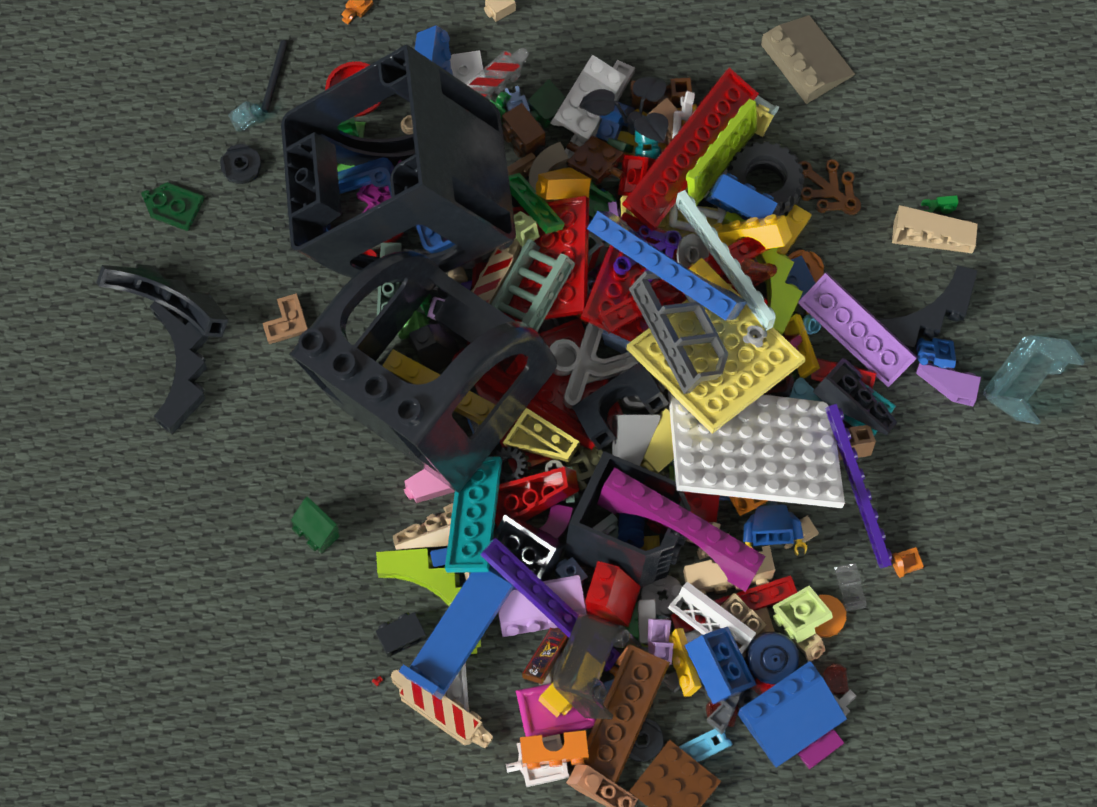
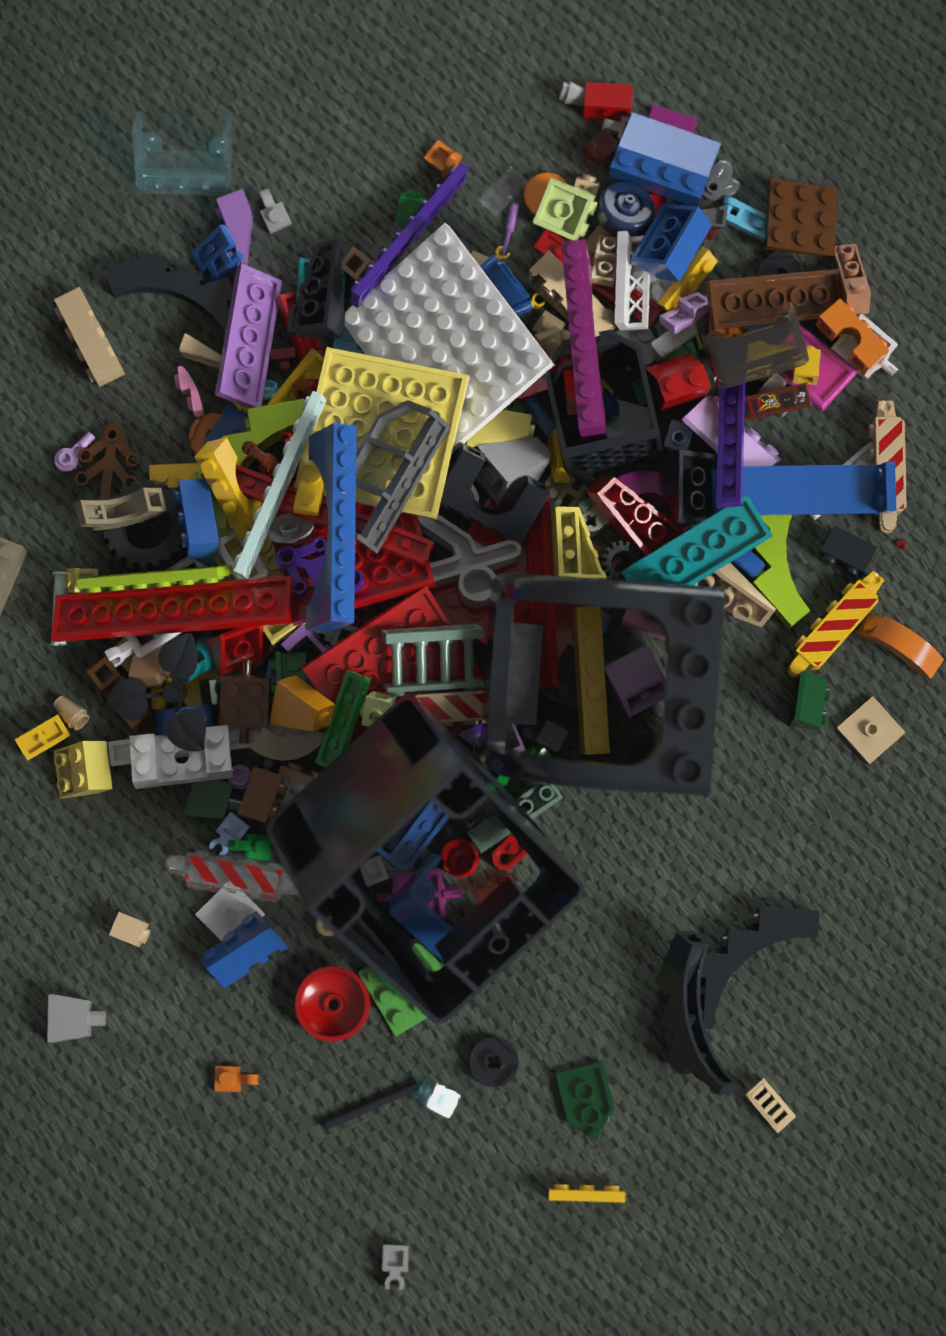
camera: 125 degrees left, 10 degrees up
(81, 319) = (756, 1089): none -> tan slope
(112, 161) = (586, 1193): none -> yellow plate
(166, 25) = (396, 1261): none -> light grey plate
(263, 559) = (870, 730): none -> tan plate
(291, 323) = (622, 881): medium nougat plate -> none
(304, 617) = (902, 642): none -> orange arch
(353, 588) = (837, 625): none -> yellow hinge
(552, 133) = (241, 777): none -> medium lavender plate
(627, 42) = (83, 769): none -> light yellow slope
(668, 31) = (42, 737): none -> yellow hinge
(670, 60) = (72, 714): none -> tan cone
(747, 751) = (721, 179): none -> dark grey plate
(755, 331) = (334, 400): light grey plate -> none
(786, 155) = (122, 511): none -> dark tan arch
(820, 573) = (510, 224): none -> medium lavender piece
(830, 350) = (283, 355): none -> dark red tile
(854, 274) = (185, 383): none -> bright pink slope
(856, 165) = (67, 459): none -> lavender plate
(870, 709) = (607, 101): none -> red panel
(874, 295) = (198, 352): none -> tan slope
(886, 510) = (408, 206): none -> green bracket
(891, 690) = (572, 94): none -> light grey cone
(941, 204) = (52, 346): green plate -> none
(942, 416) = (274, 214): none -> light grey plate

